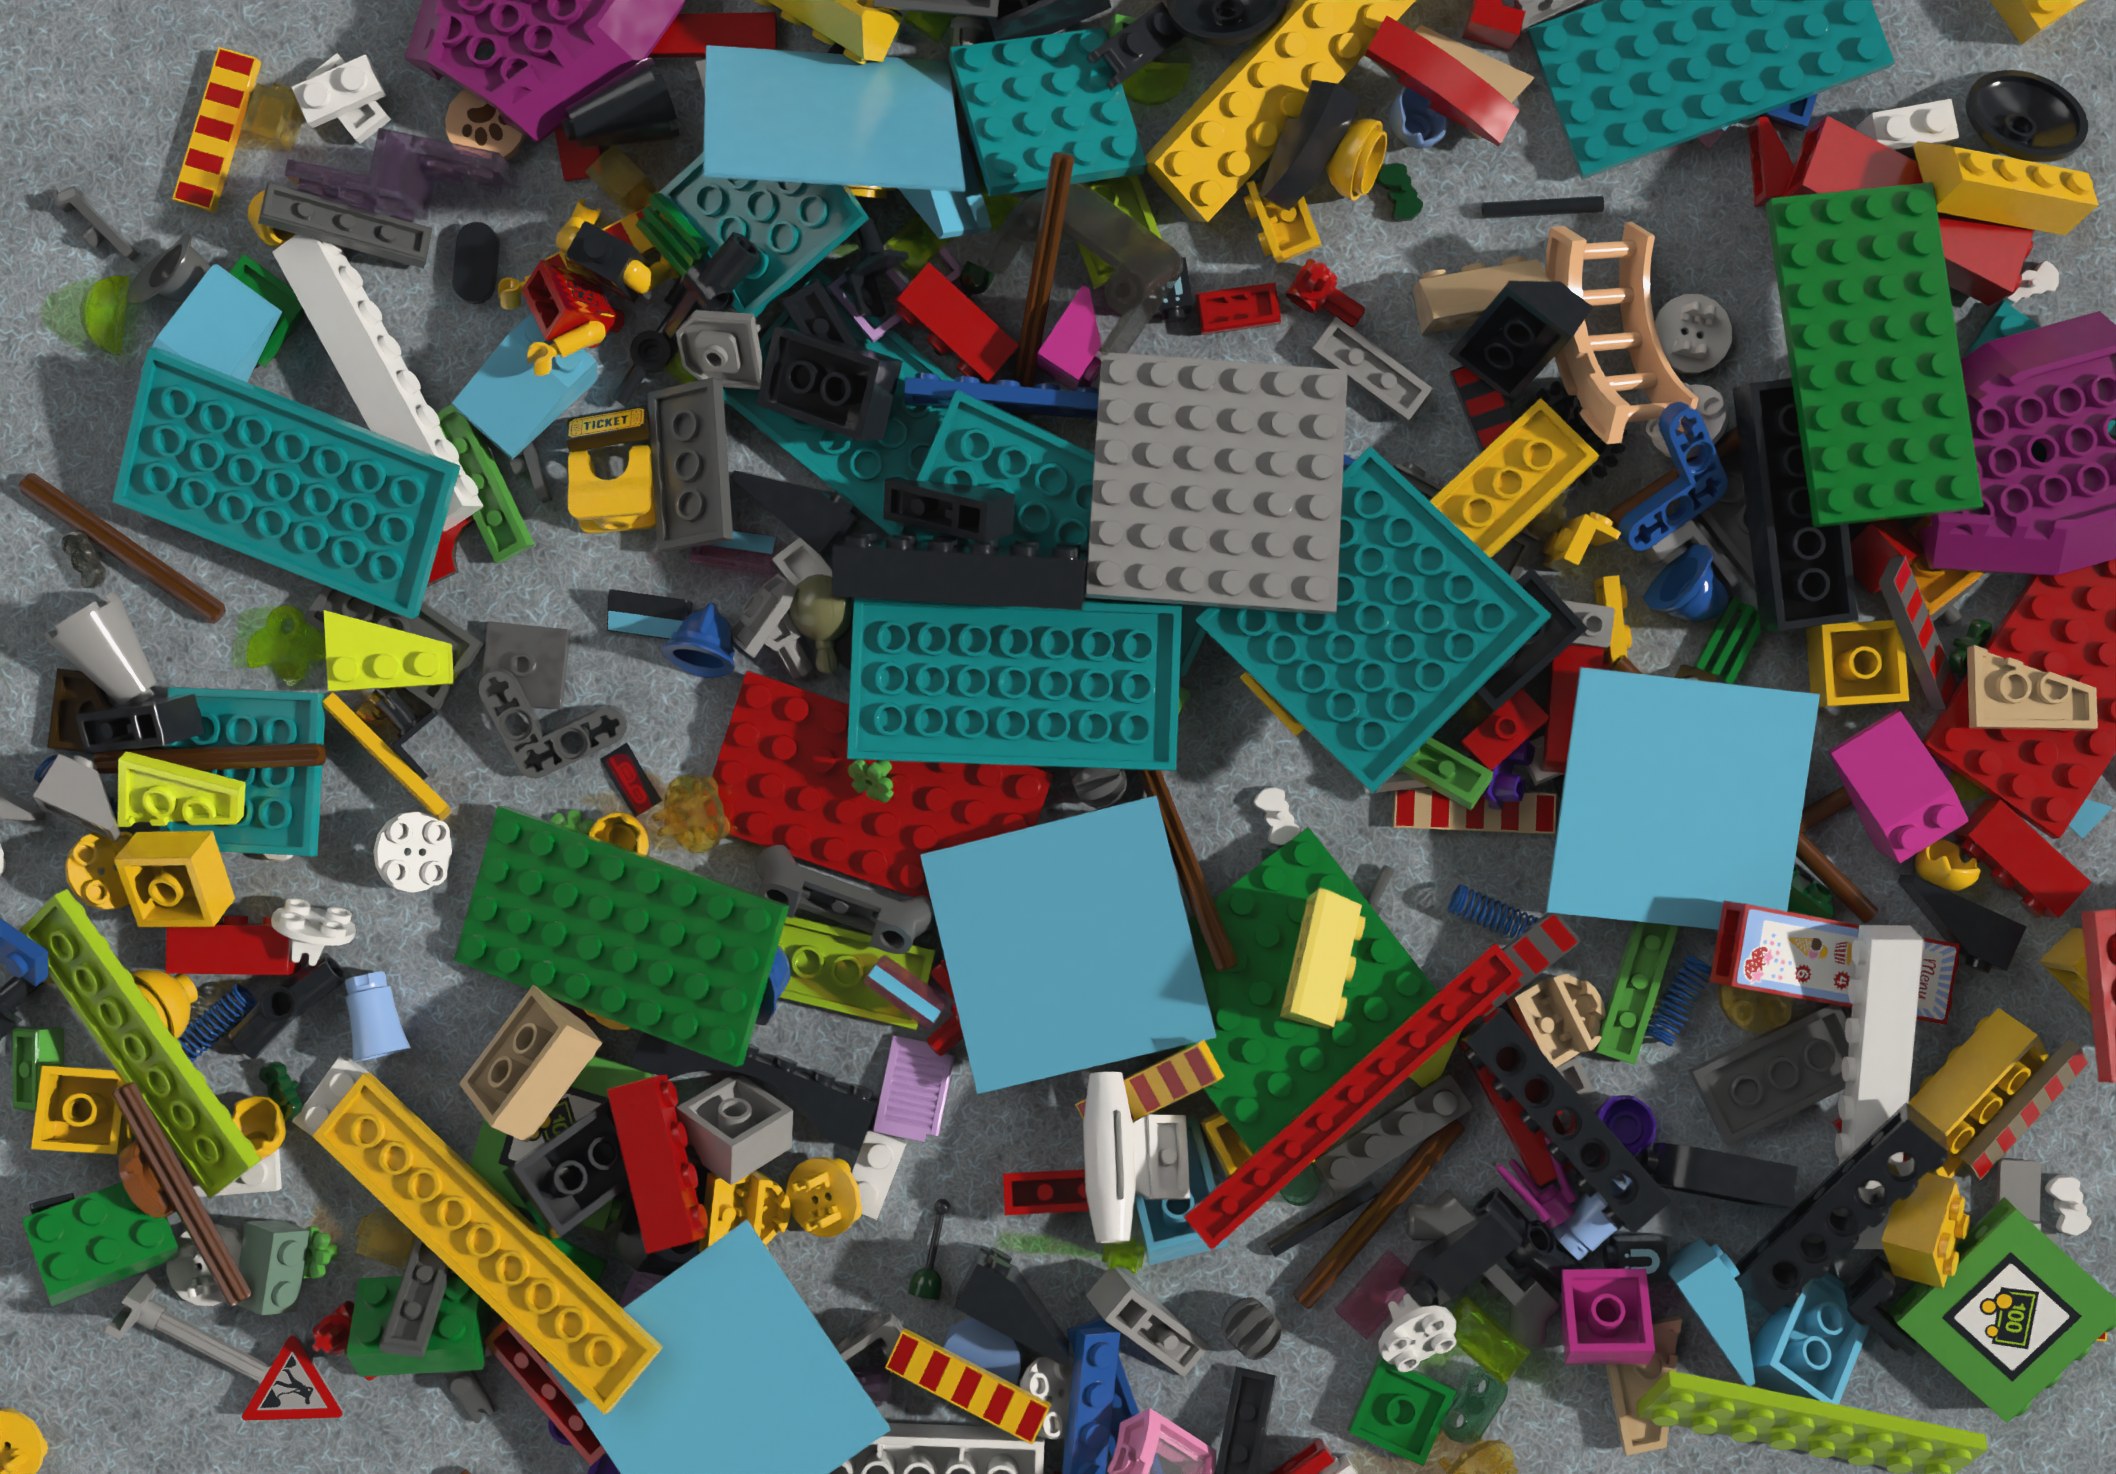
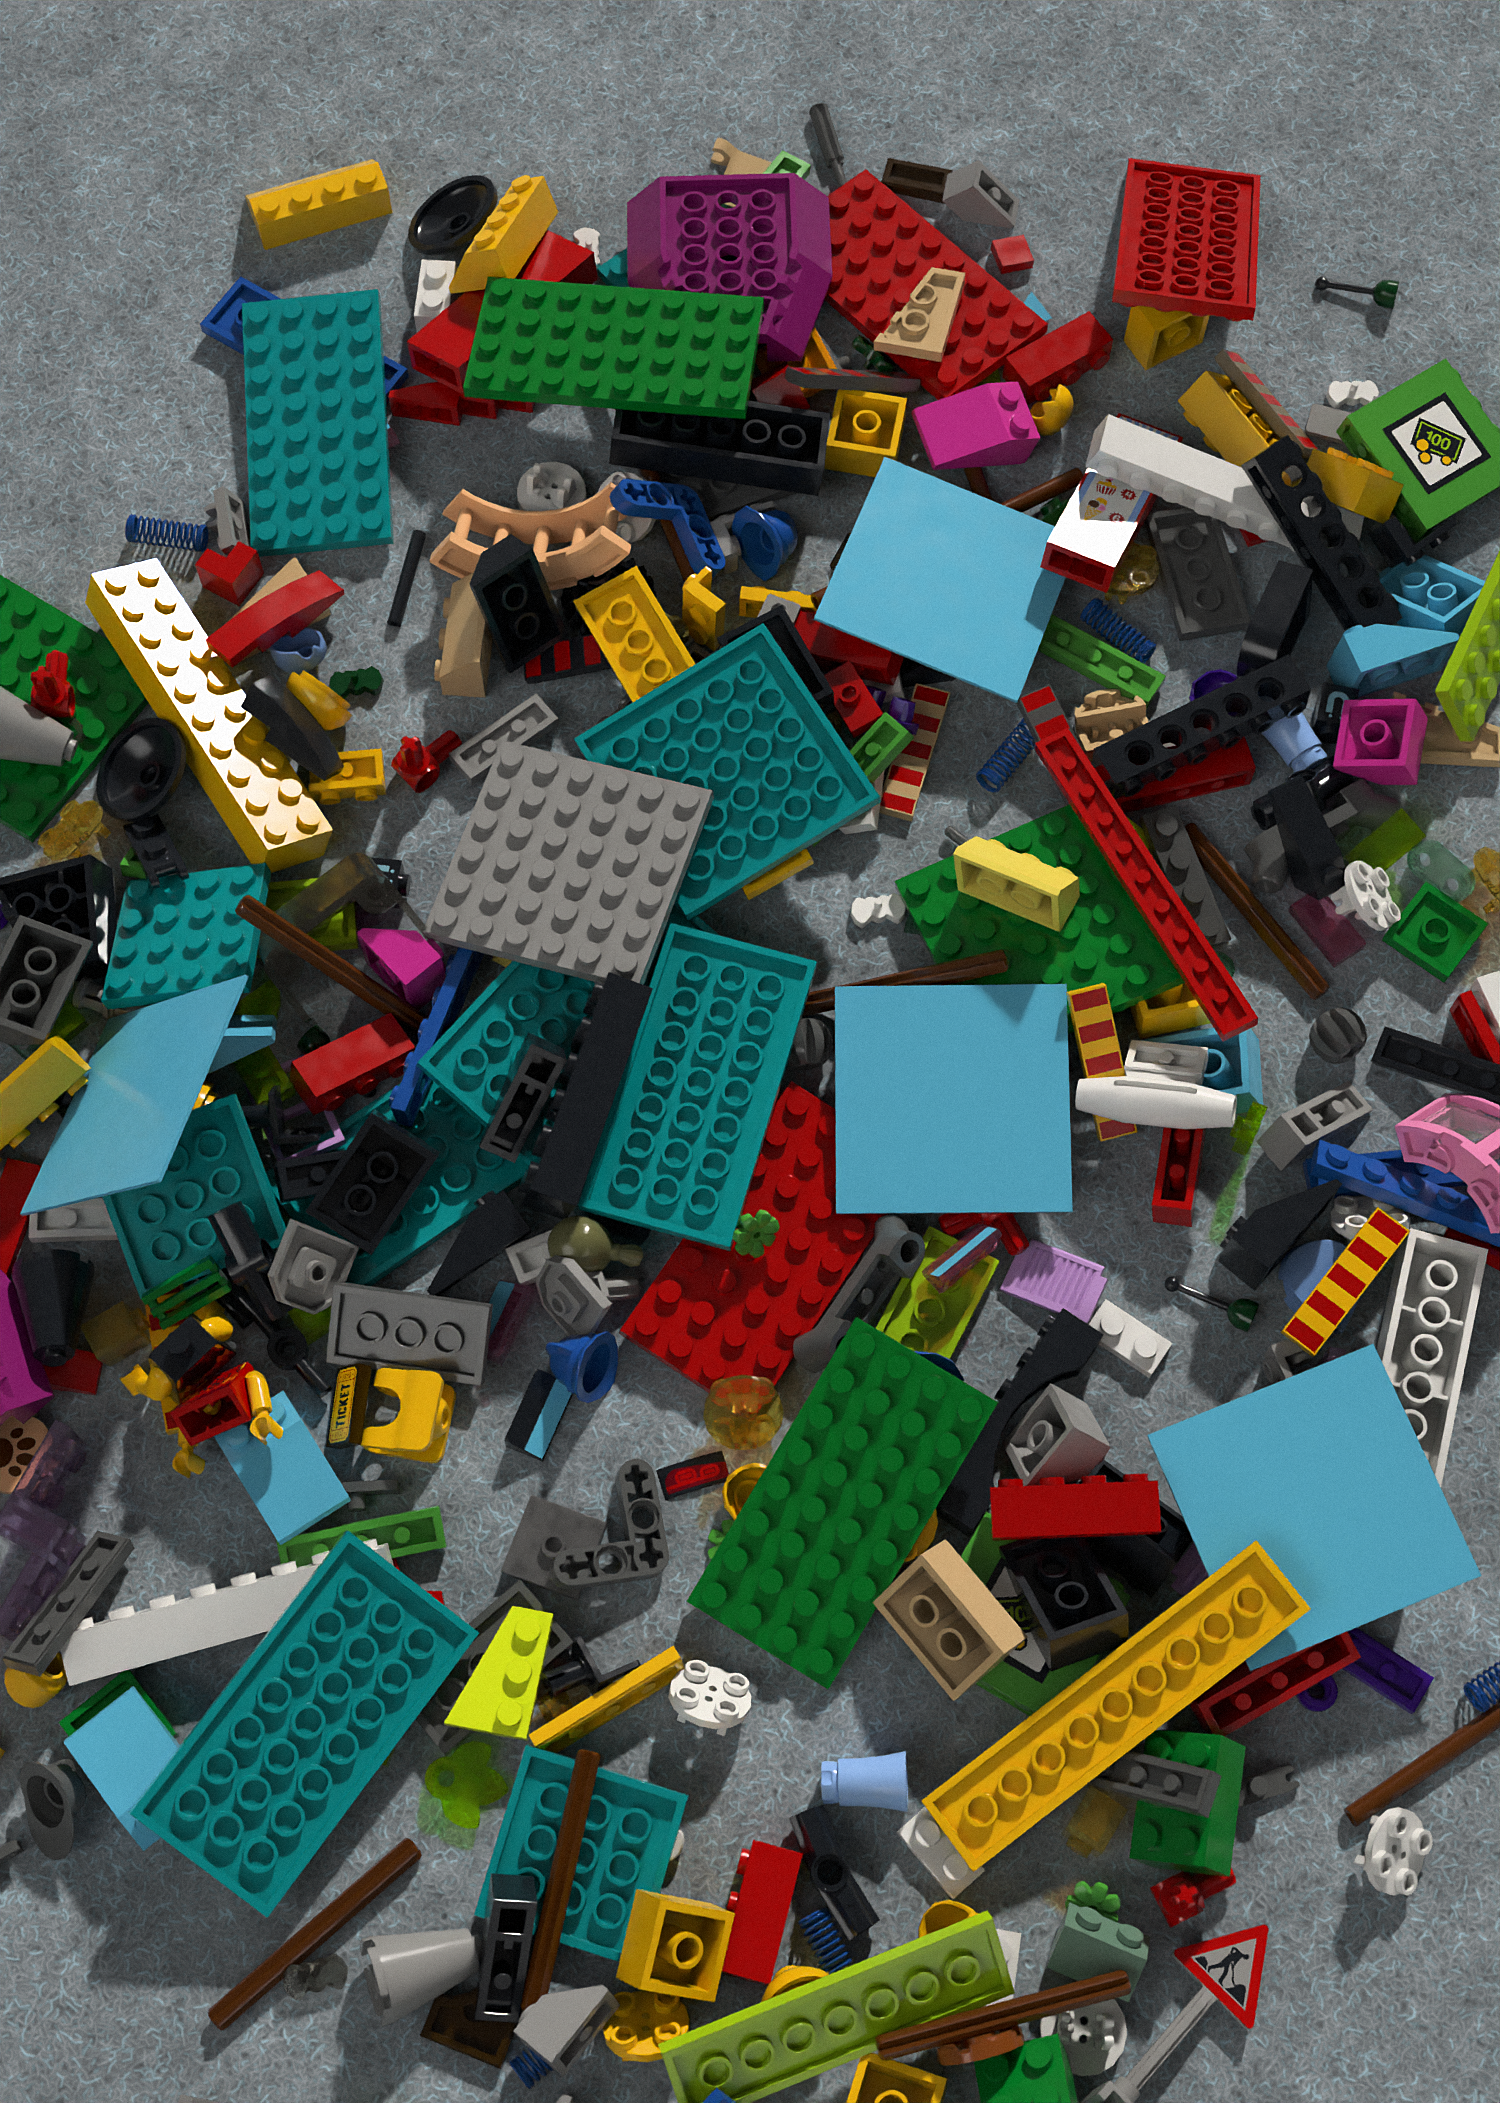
camera: 75 degrees left, 20 degrees down
(104, 313) = (68, 1887): clear neon green plate -> none
(172, 793) = (585, 1925): neon yellow wing -> none
(281, 1089) = (915, 1901): dark green piece -> none
(312, 928) = (765, 1815): white plate -> none
(476, 263) = (146, 1497): black tile -> none
(750, 1199) = (1134, 1455): yellow slope -> none
(818, 1178) = (1159, 1382): yellow plate -> none
(1156, 83) = (193, 846): clear neon green plate -> none
(1238, 308) = (416, 831): red plate -> none
(1322, 1219) = (1250, 958): black piece -> none
(1550, 1204) = (1272, 764): magenta plant -> none
(1747, 611) = (825, 513): green tile -> none
(1983, 935) = (1113, 394): black slope -> none

